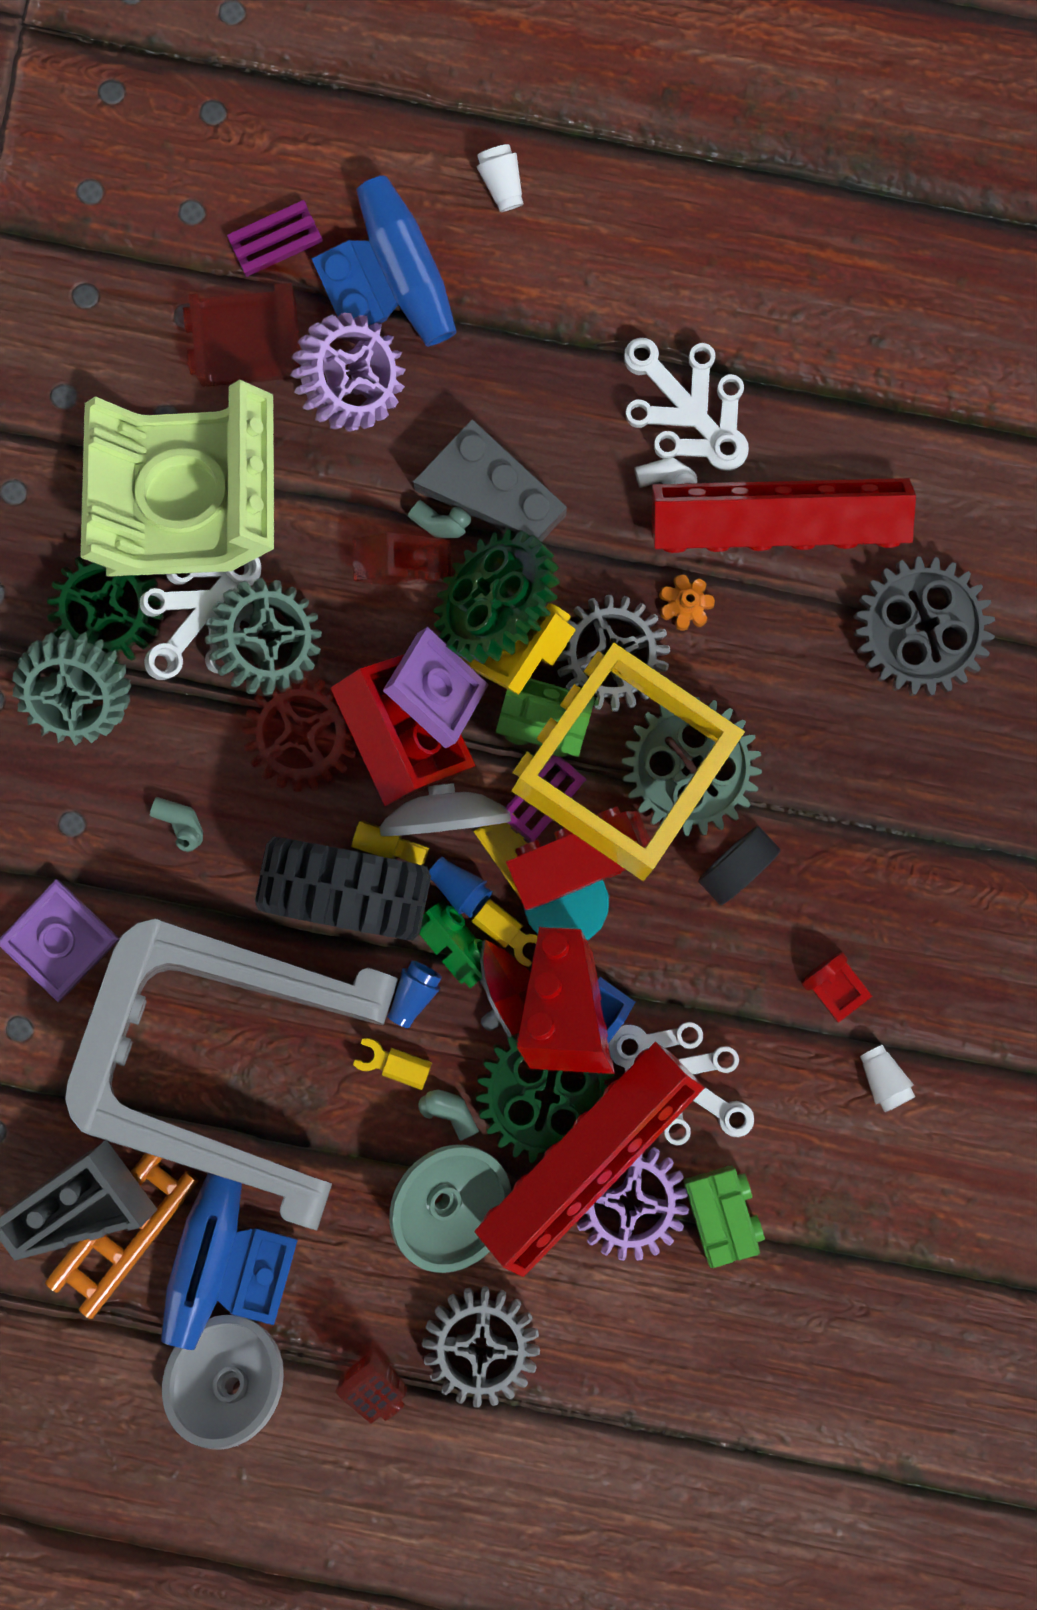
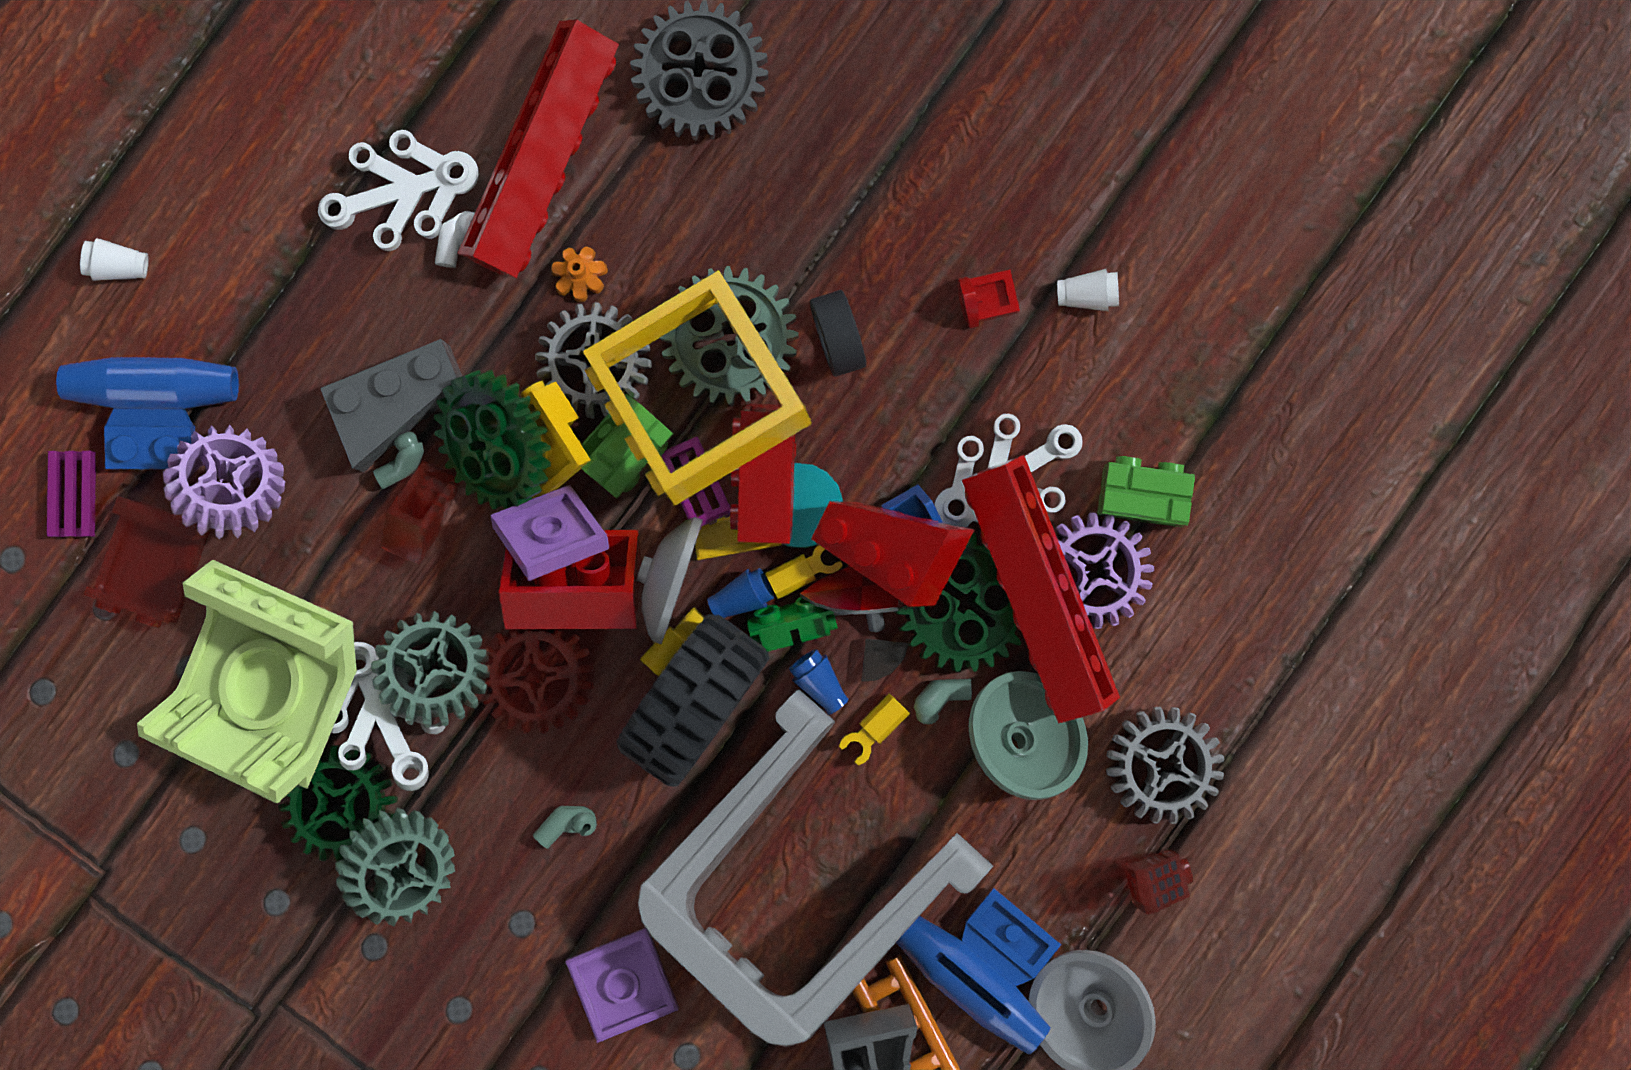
camera: 60 degrees left, 0 degrees up
(460, 1041) = (881, 658): none -> clear smoke tile

